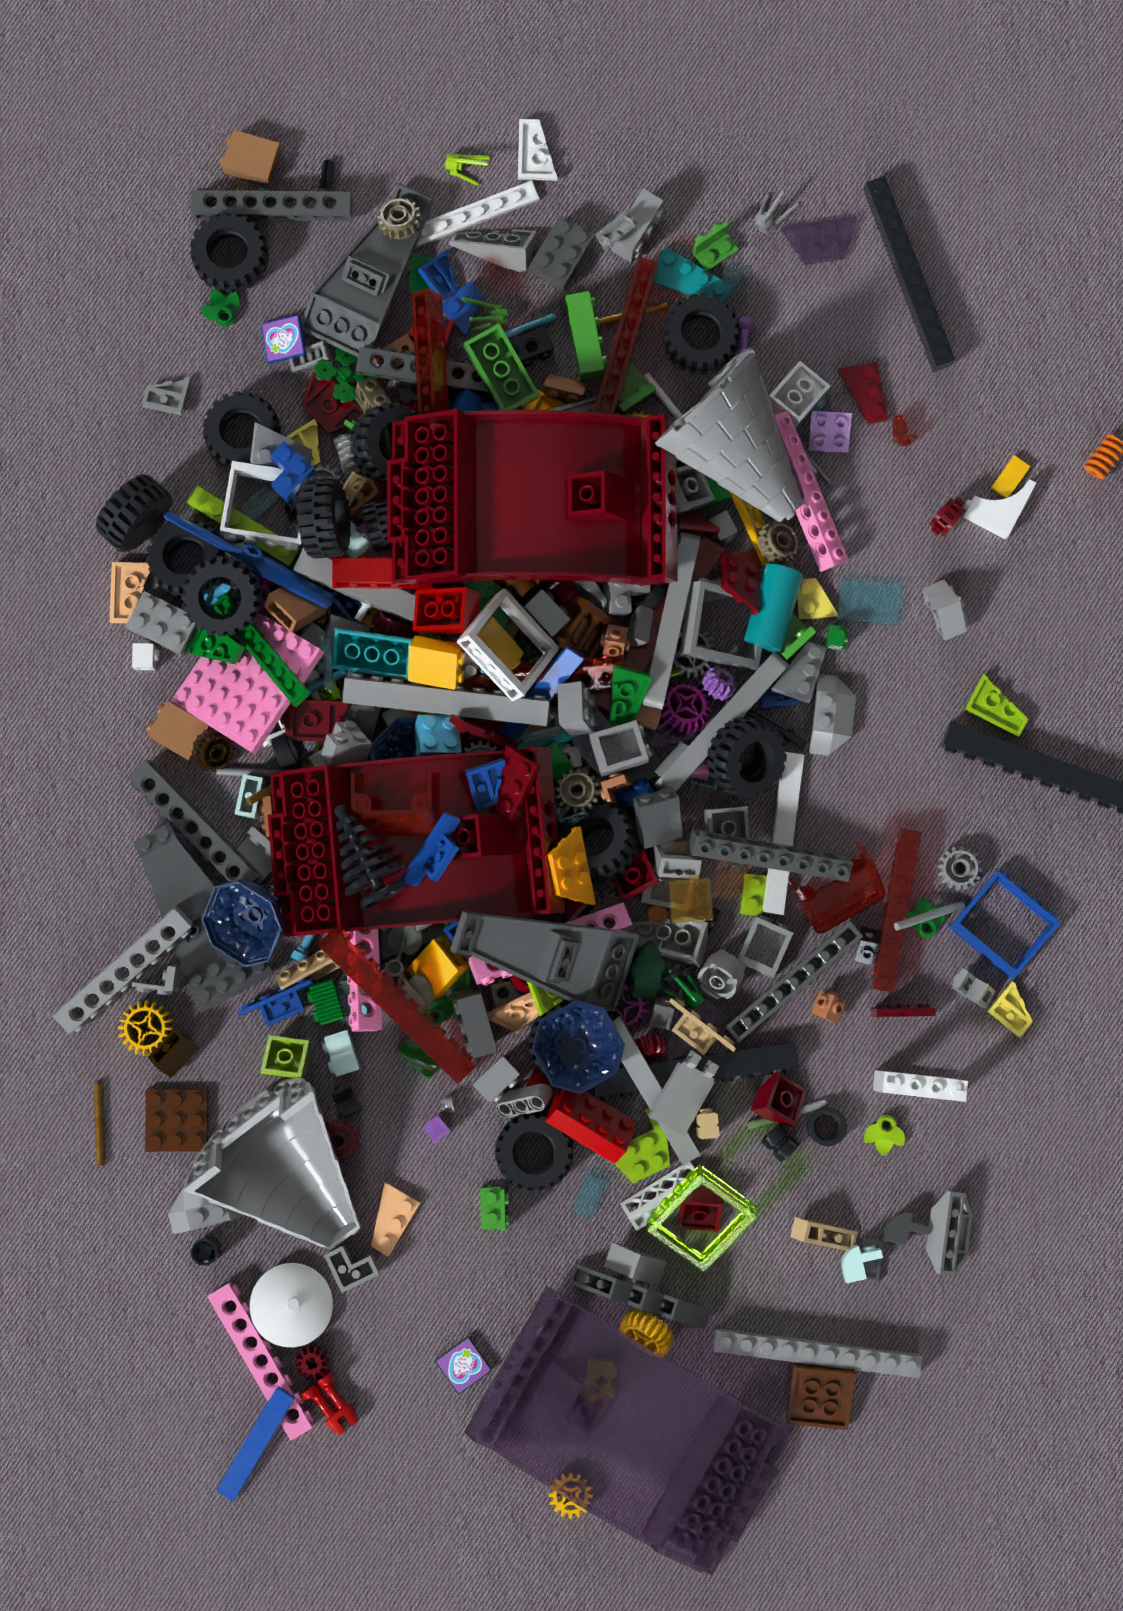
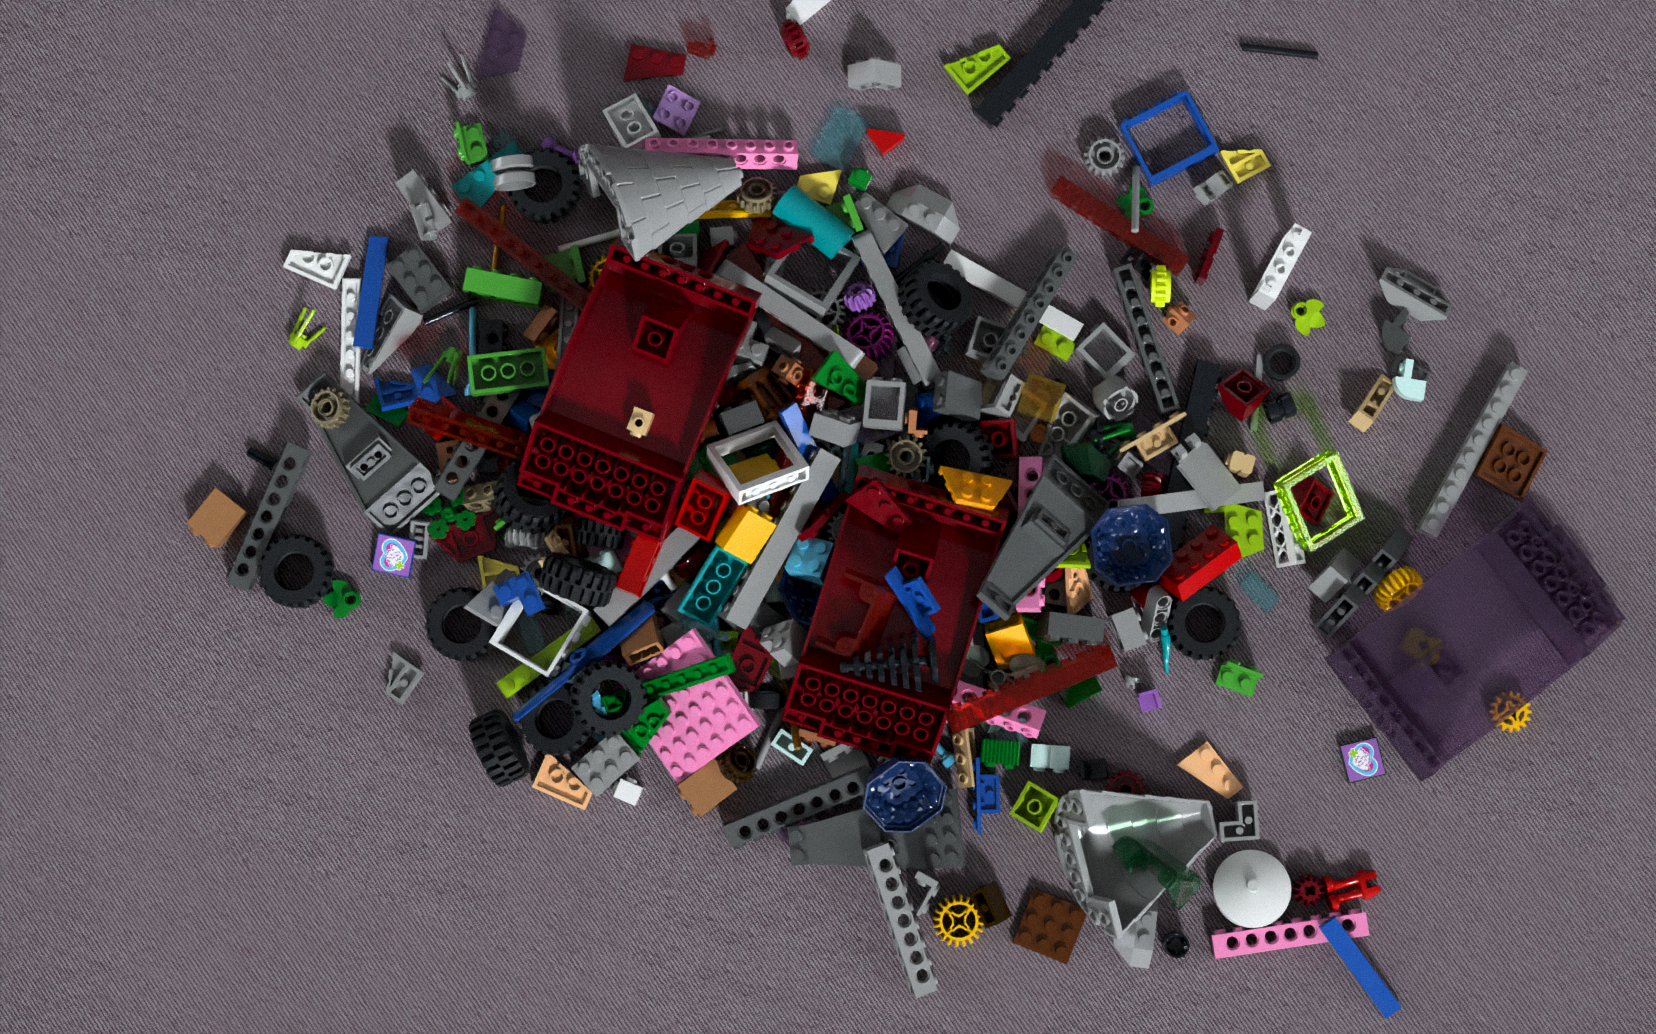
camera: 60 degrees left, 0 degrees up
(98, 1113) = (1026, 996): pearl gold bar -> none
(267, 1223) = (1174, 875): none -> clear green windscreen
(485, 782) = (870, 532): blue wing -> none
(496, 1124) = (1166, 645): none -> teal animal
(503, 518) = (645, 416): none -> tan brick
(529, 212) = (371, 292): none -> blue tile
(542, 296) = (450, 311): none -> black bar
(698, 295) = (513, 172): none -> light grey wheel
(842, 899) = (1090, 270): clear red windscreen -> none
(852, 974) = (1160, 286): none -> neon yellow gear
(885, 647) = (884, 140): none -> red slope

